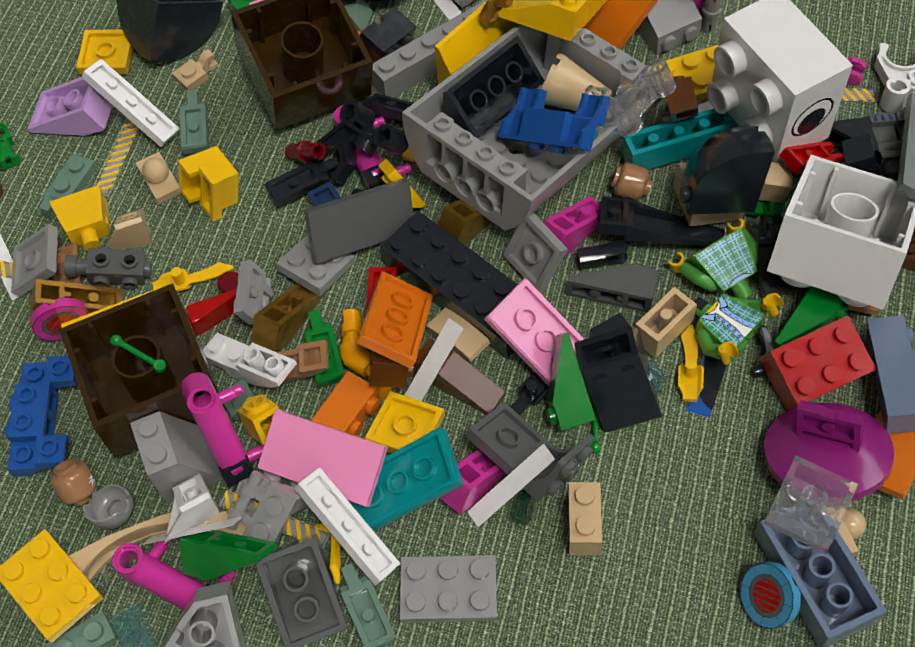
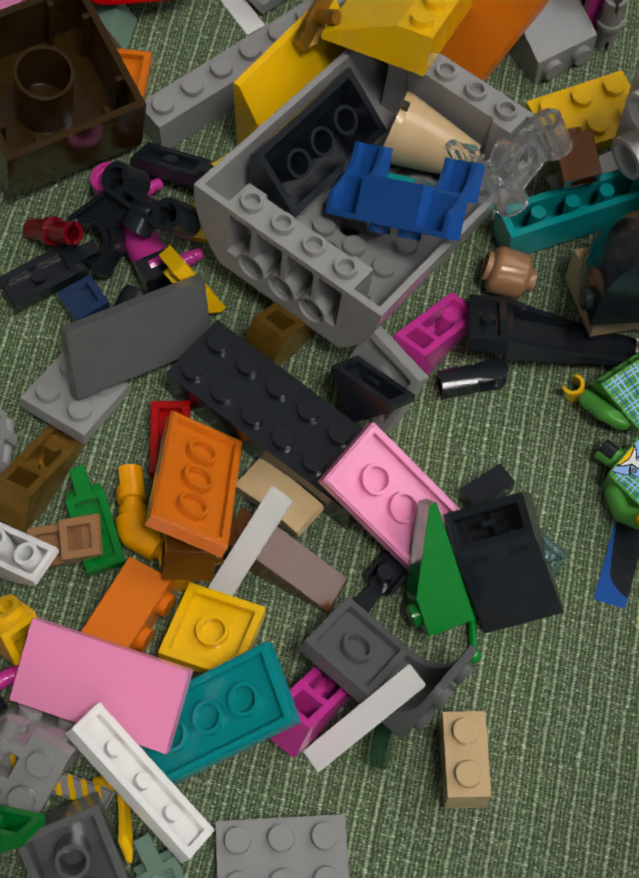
camera: 10 degrees left, 5 degrees up
(389, 35) = (163, 59): black brick -> none
(523, 259) = (367, 390): none -> black slope
(619, 286) = (501, 424): dark grey slope -> none
(666, 321) = (564, 475): tan brick -> none
(690, 375) = (598, 548): yellow piece -> none

